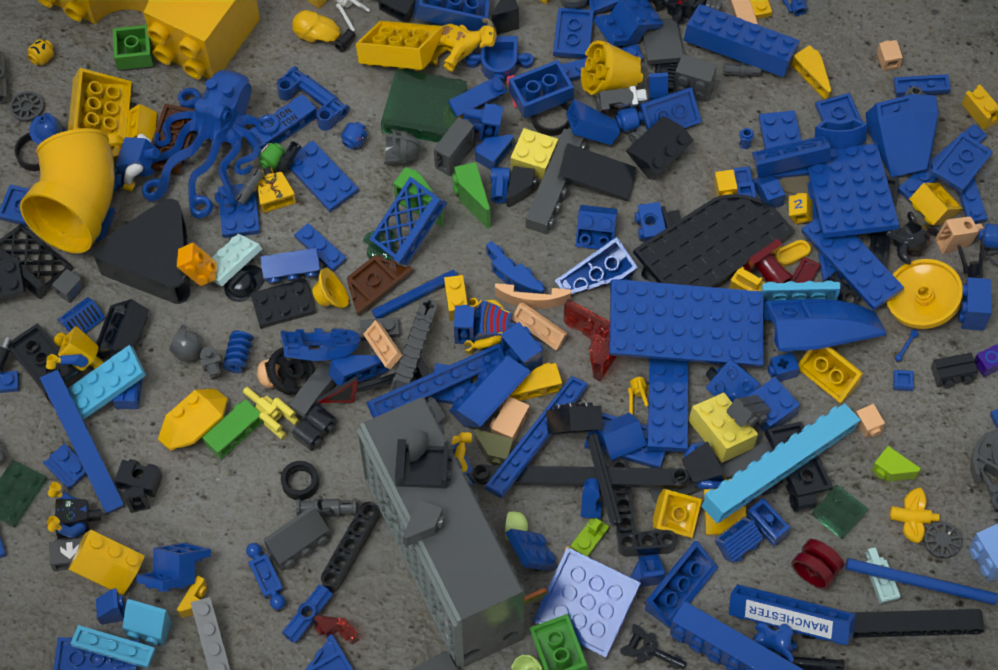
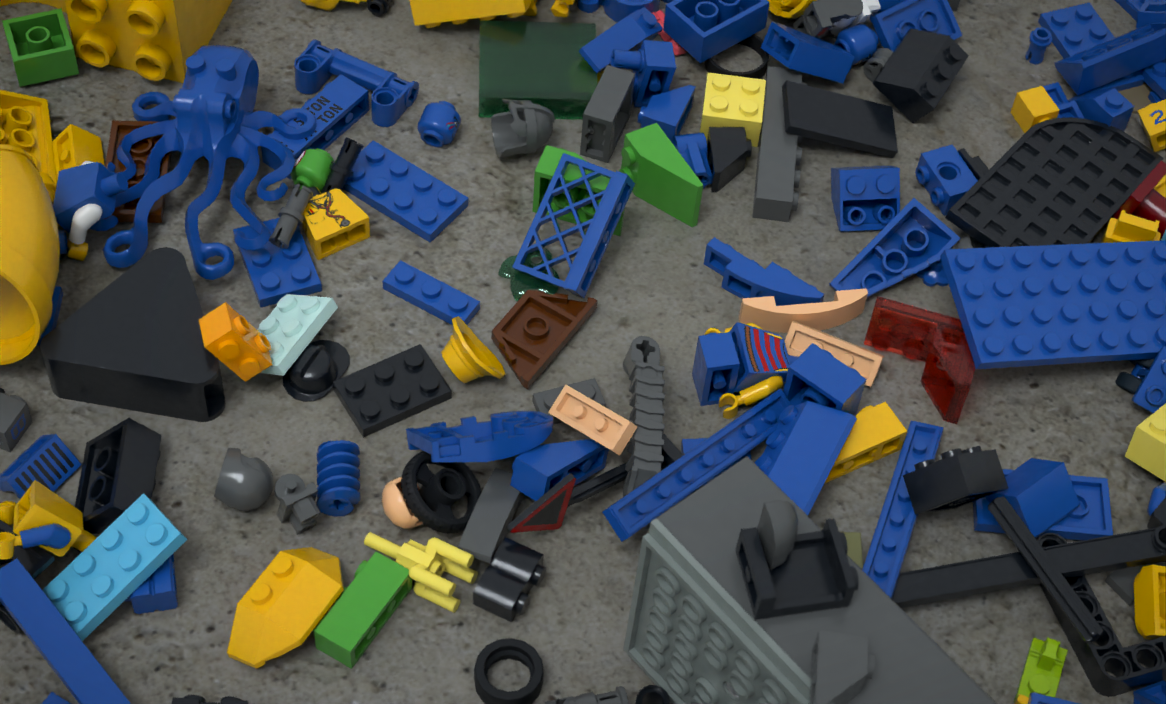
camera: 20 degrees left, 10 degrees down
(290, 265) = (392, 326): brick -> none
(411, 295) = (610, 340): blue axle -> none
(454, 293) = (679, 328): yellow brick -> none
(510, 419) = (841, 500): light nougat brick -> none
(591, 492) = (1024, 608): blue leg -> none
(639, 388) = (1027, 421): yellow plant -> none
(668, 405) = (1084, 436): blue plate -> none

